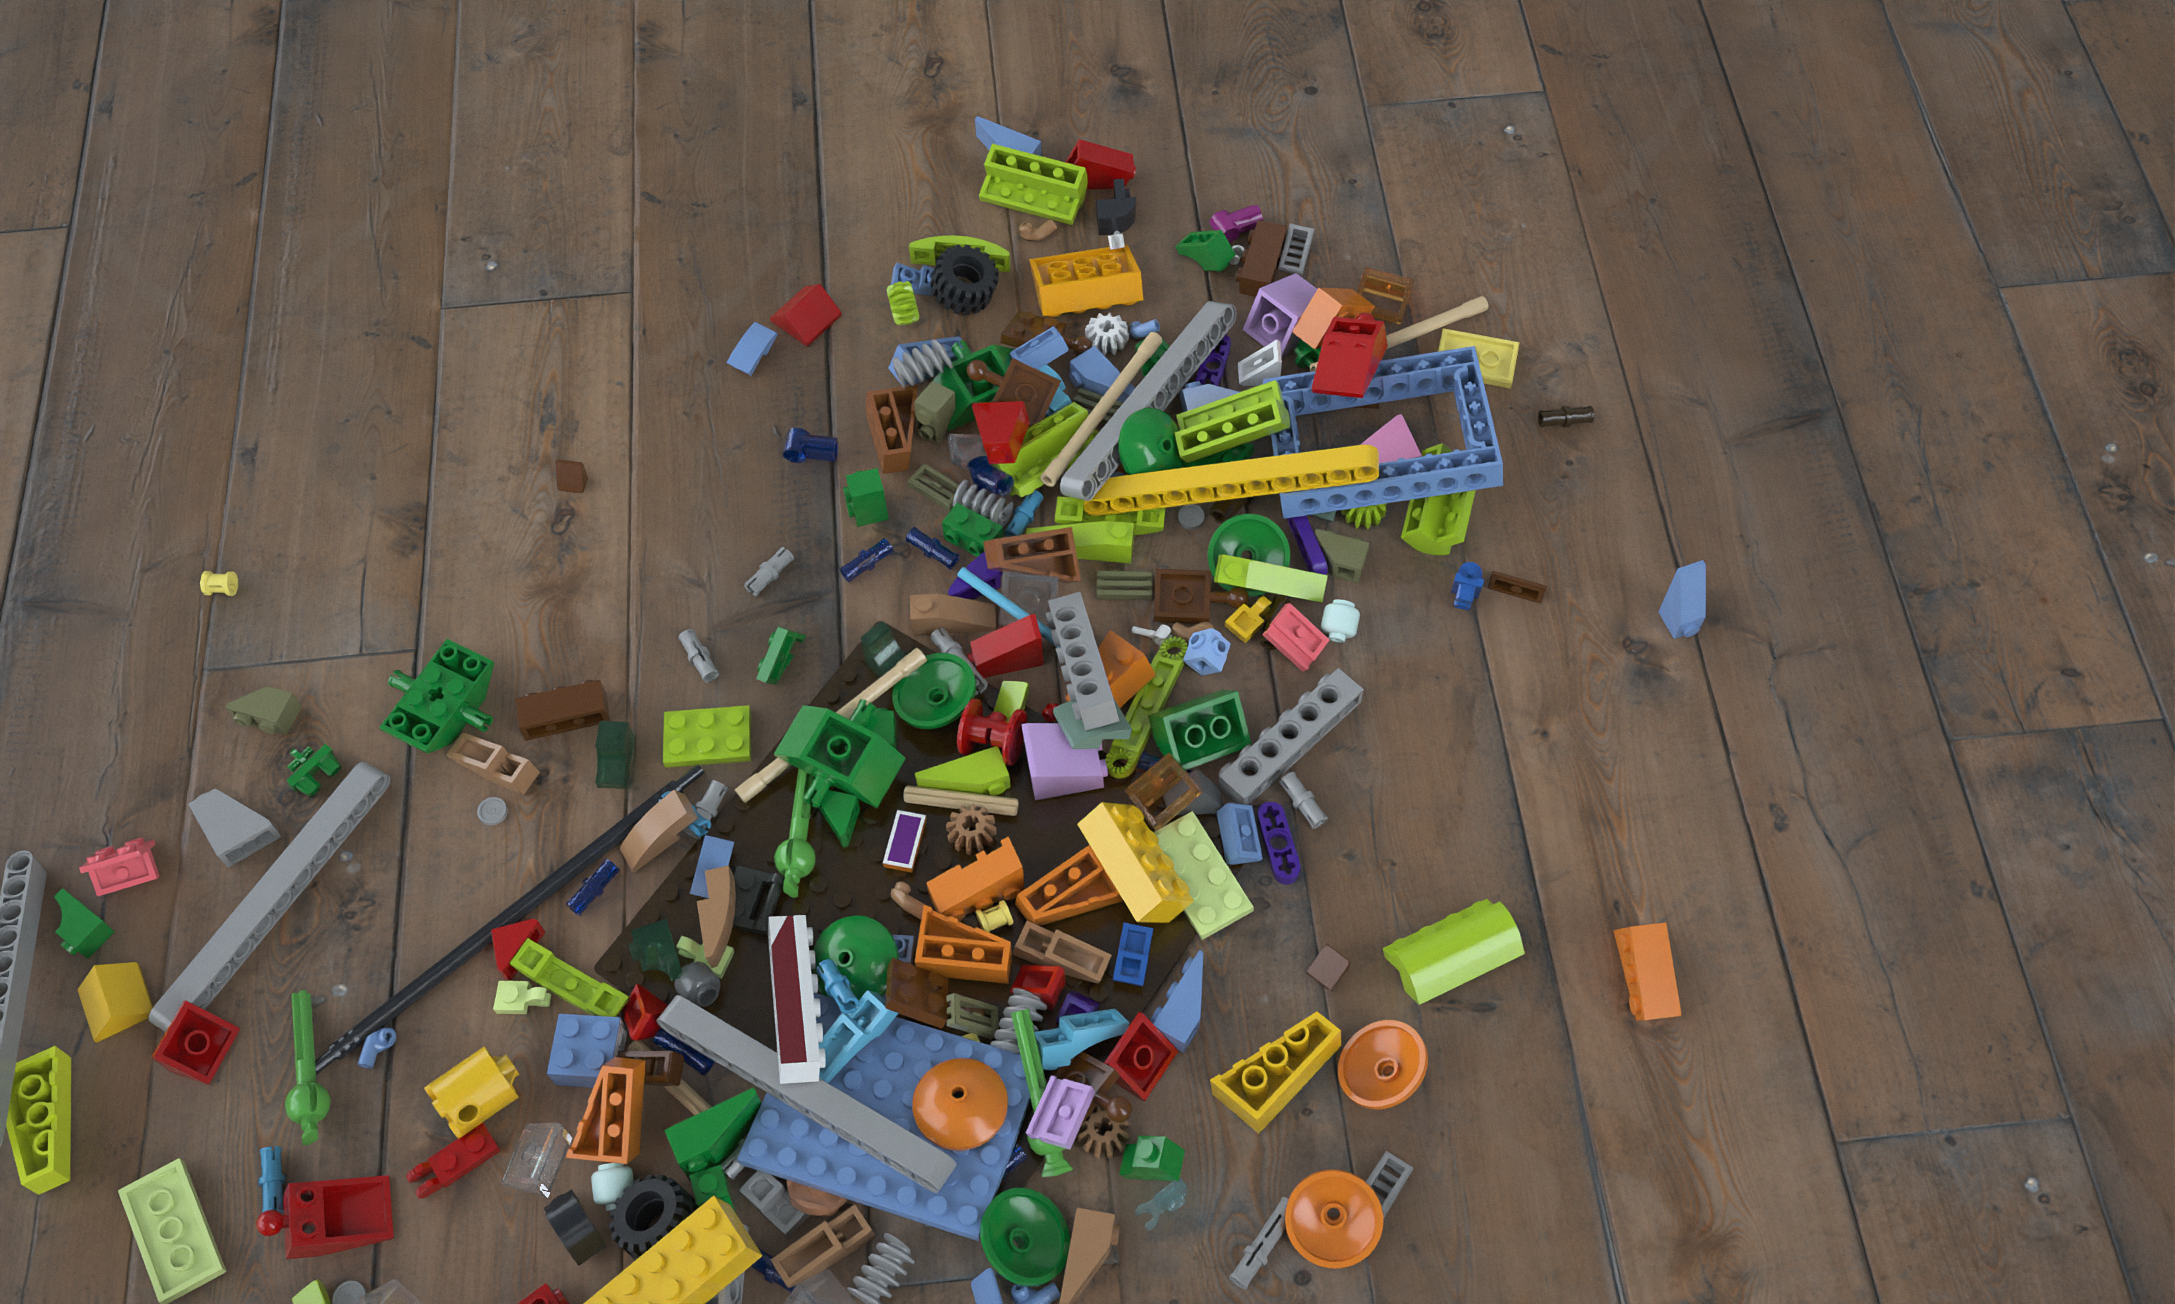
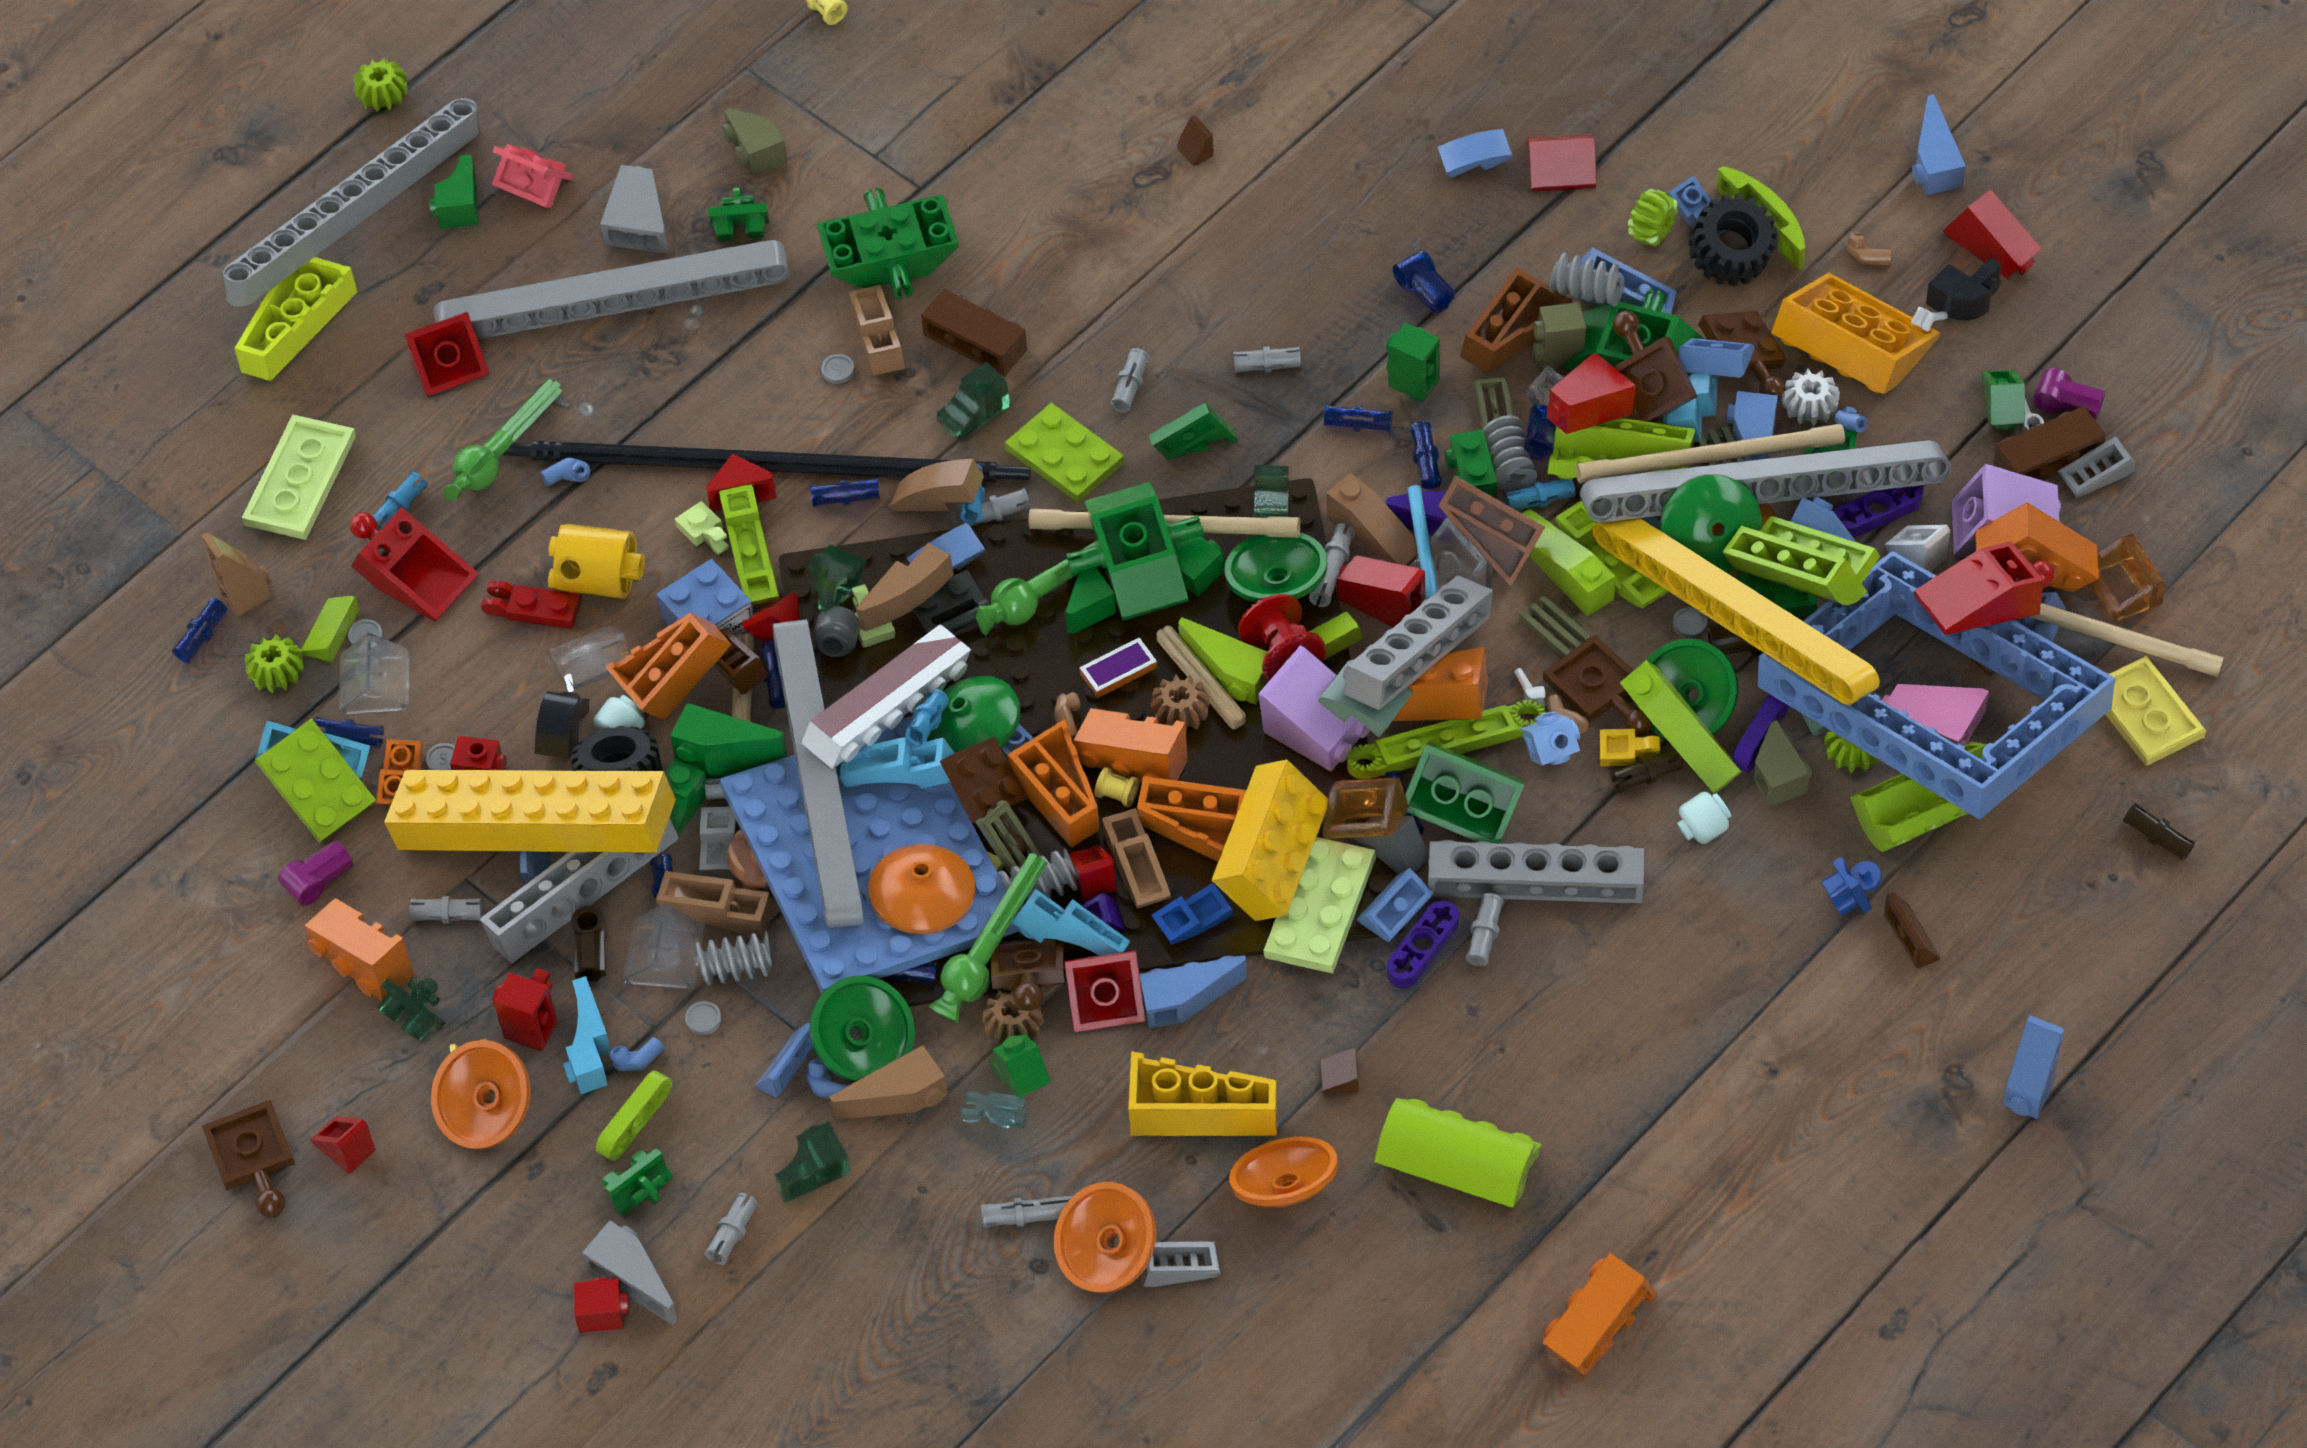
camera: 50 degrees right, 5 degrees down
(114, 998) = (428, 273): yellow slope -> none
(1033, 184) = (1909, 204): lime brick -> none
(1060, 1112) = (983, 959): lavender plate -> none
(1296, 637) = (1643, 794): coral plate -> none

